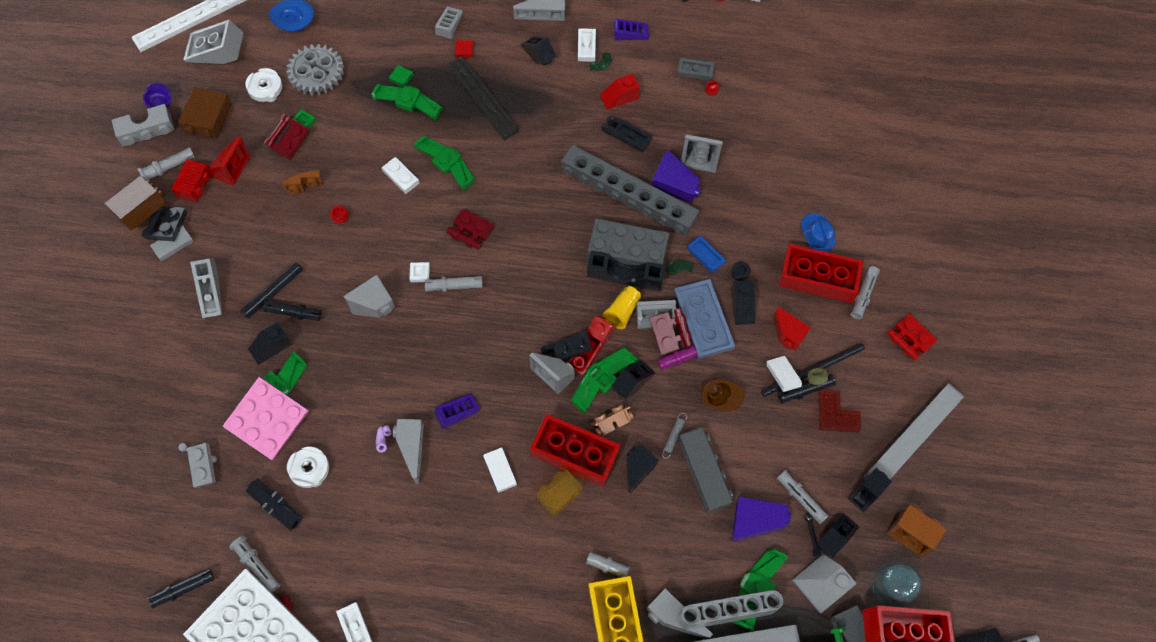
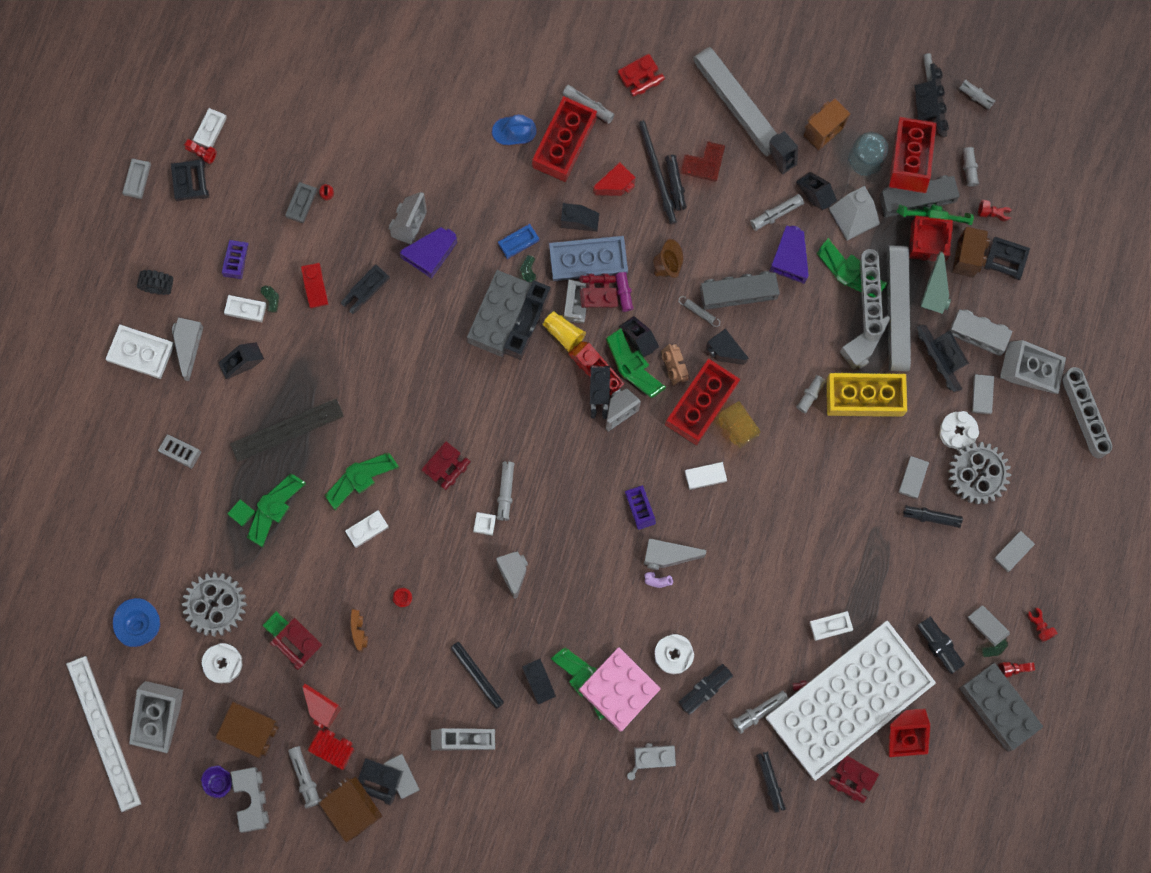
camera: 85 degrees left, 10 degrees up
(300, 311) = (505, 655): black pin -> none
(464, 48) = (219, 440): red tile -> none
(655, 198) = (475, 248): dark grey brick -> none
(740, 271) = (543, 213): black tile -> none
(784, 373) = (659, 198): white tile -> none
(816, 551) = (827, 213): black hinge -> none
(817, 376) = (668, 169): olive tile -> none

